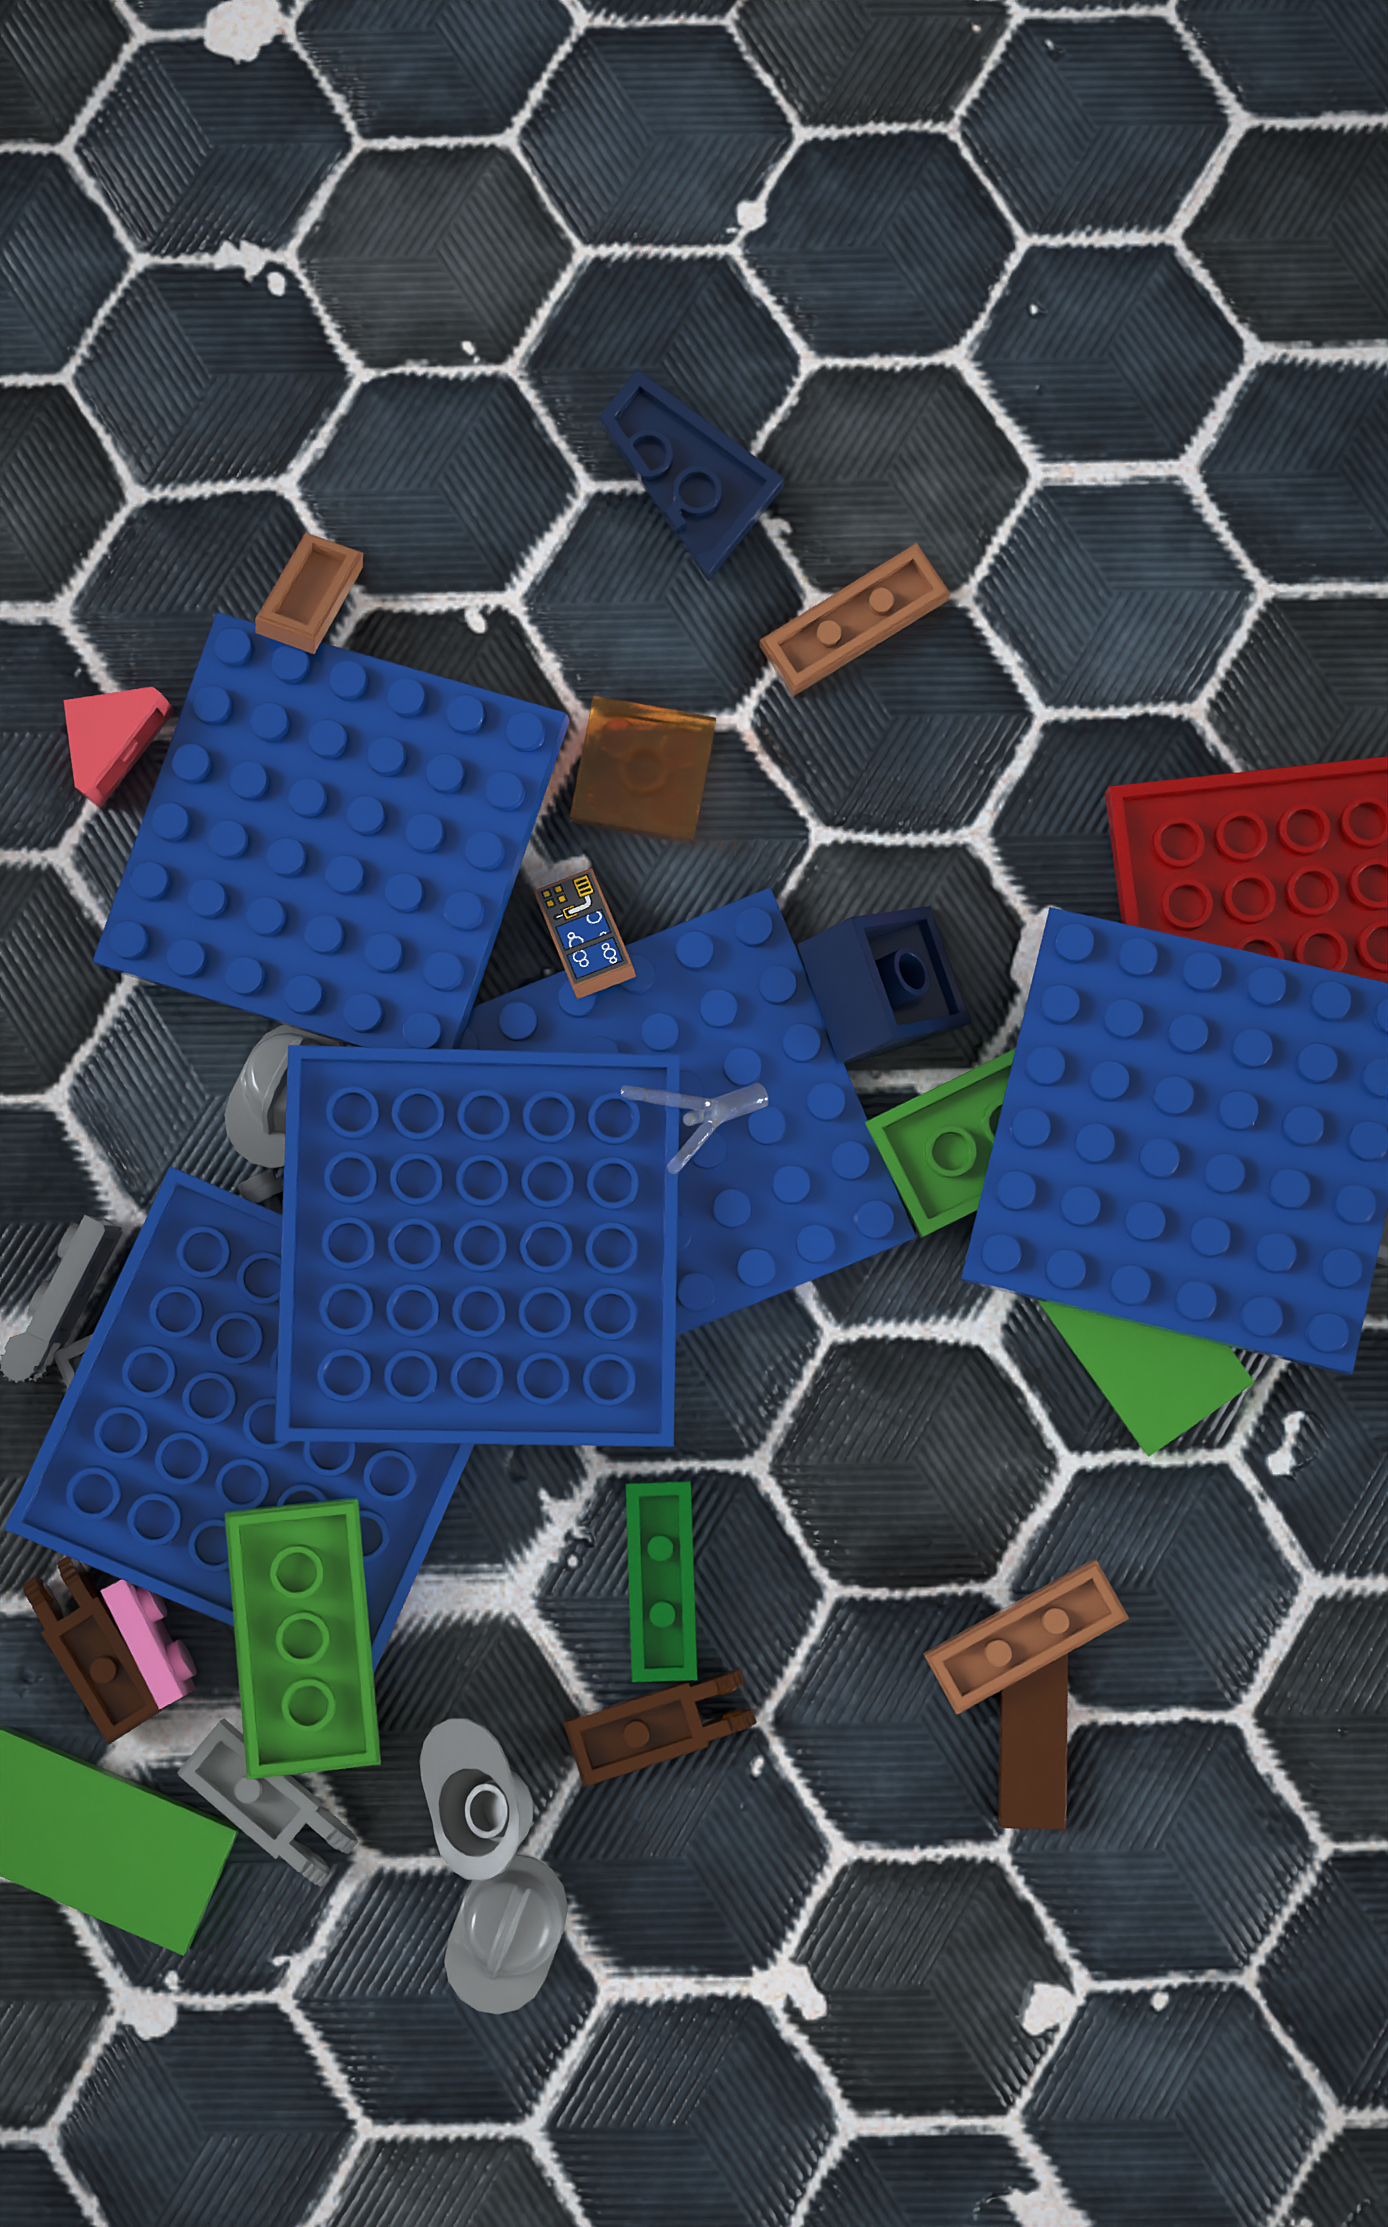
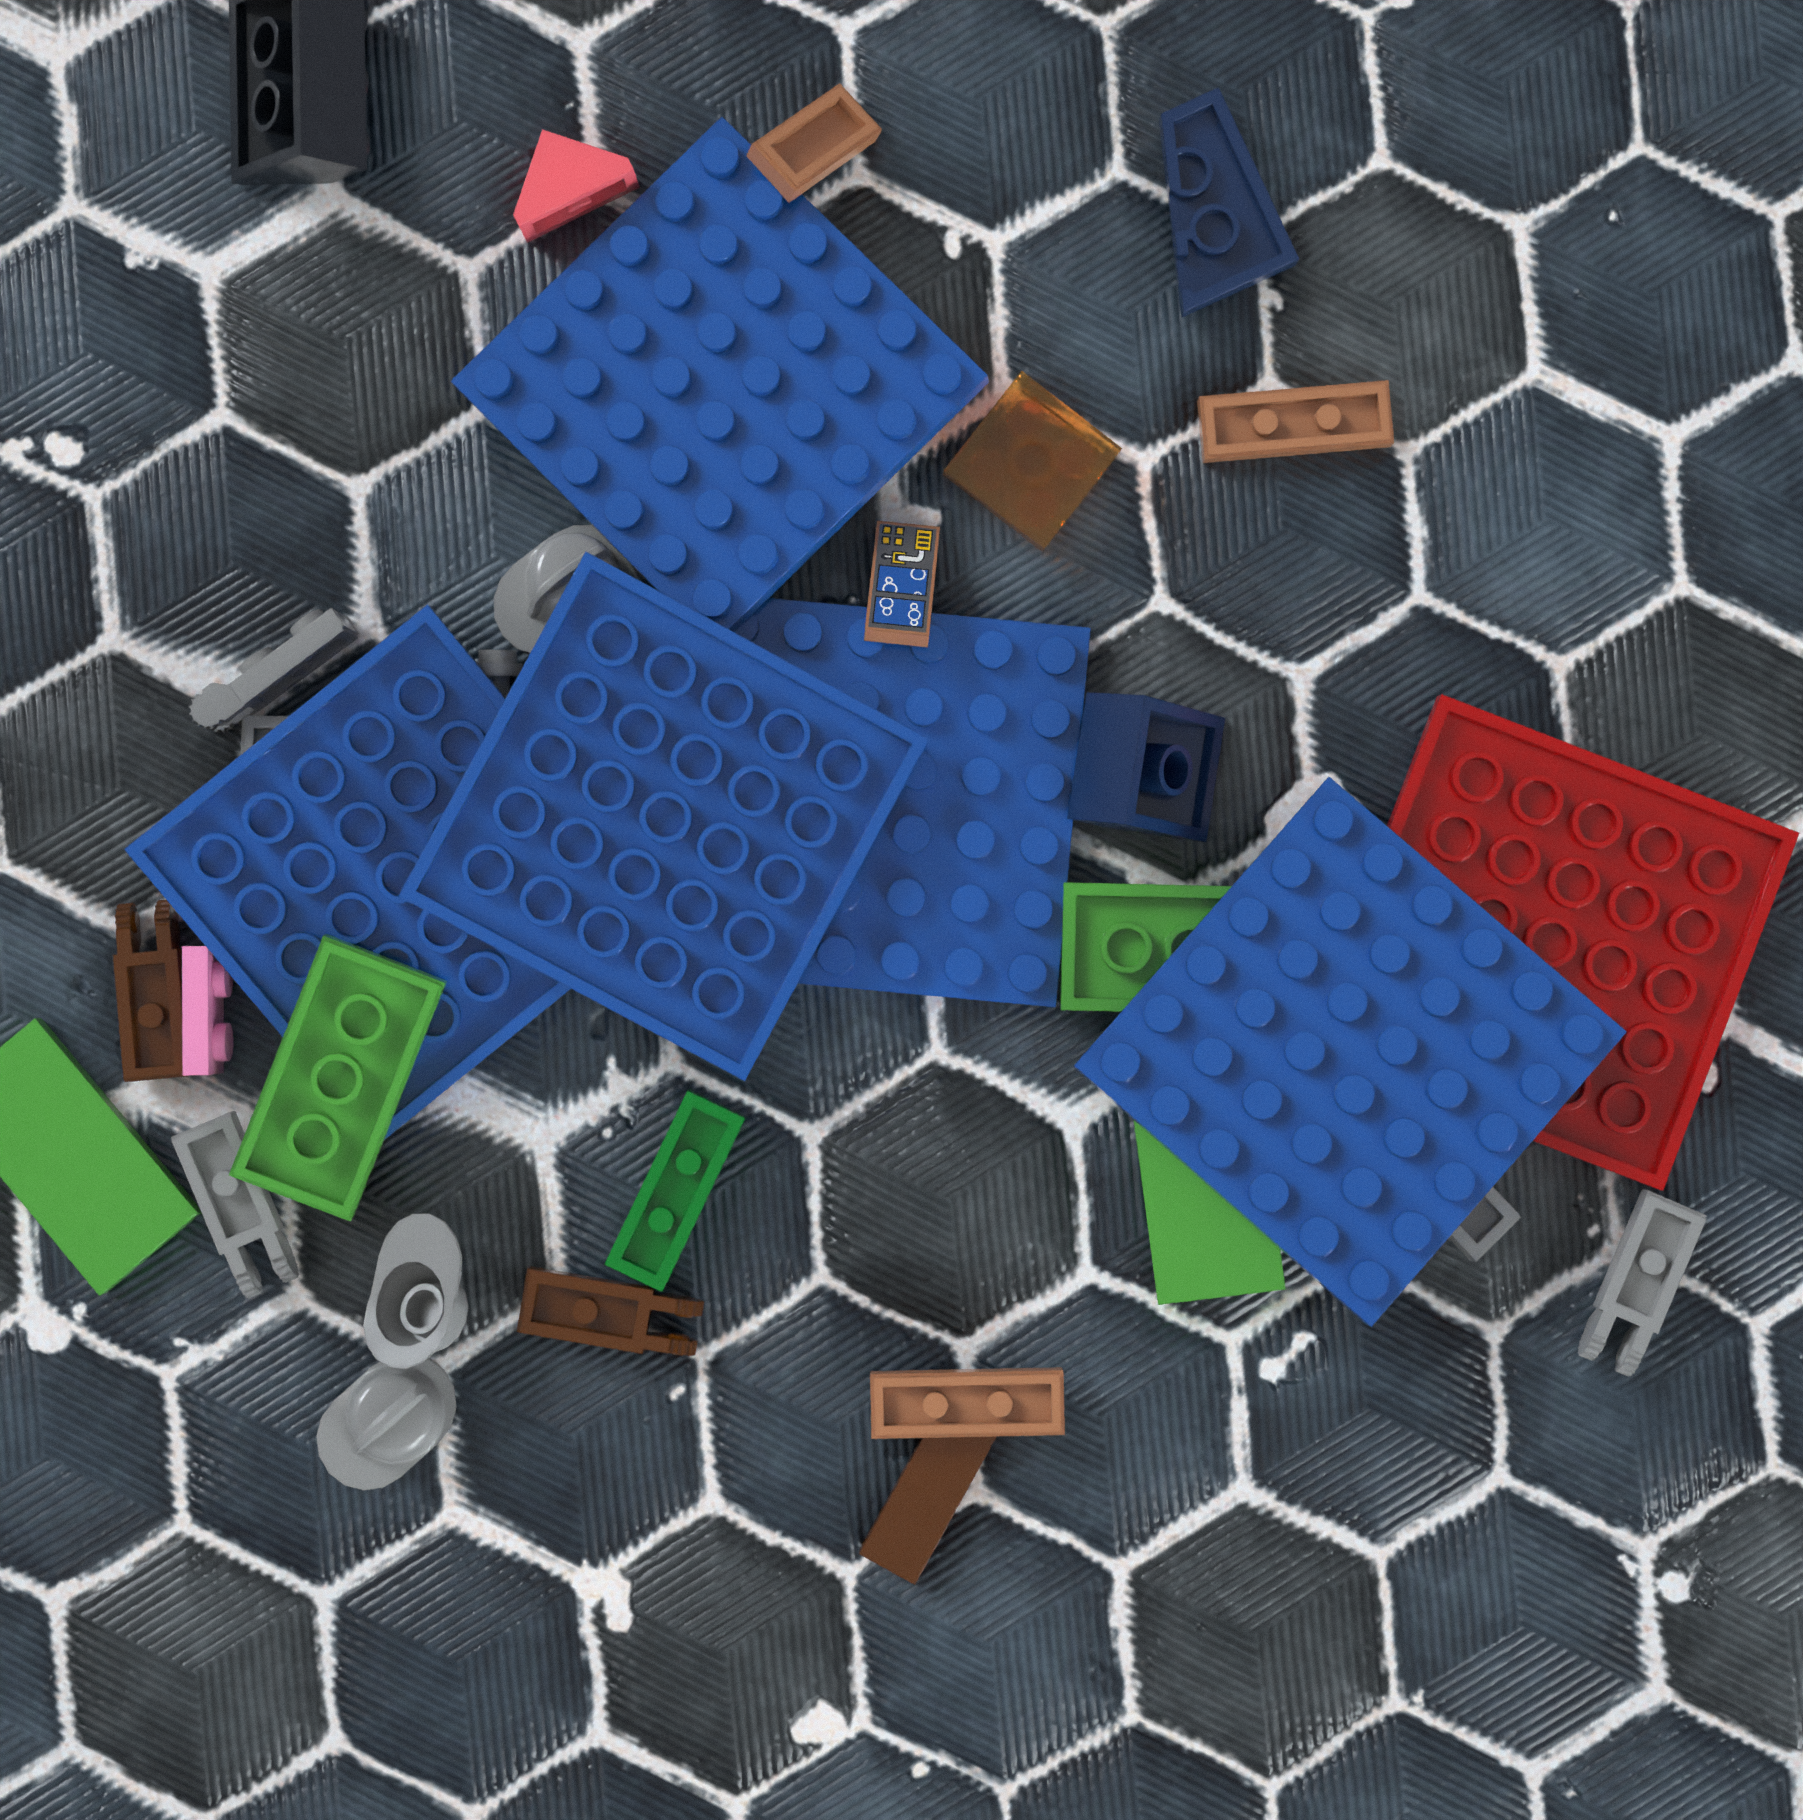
camera: 25 degrees right, 5 degrees up
(706, 1111) = (927, 807): clear plant -> none

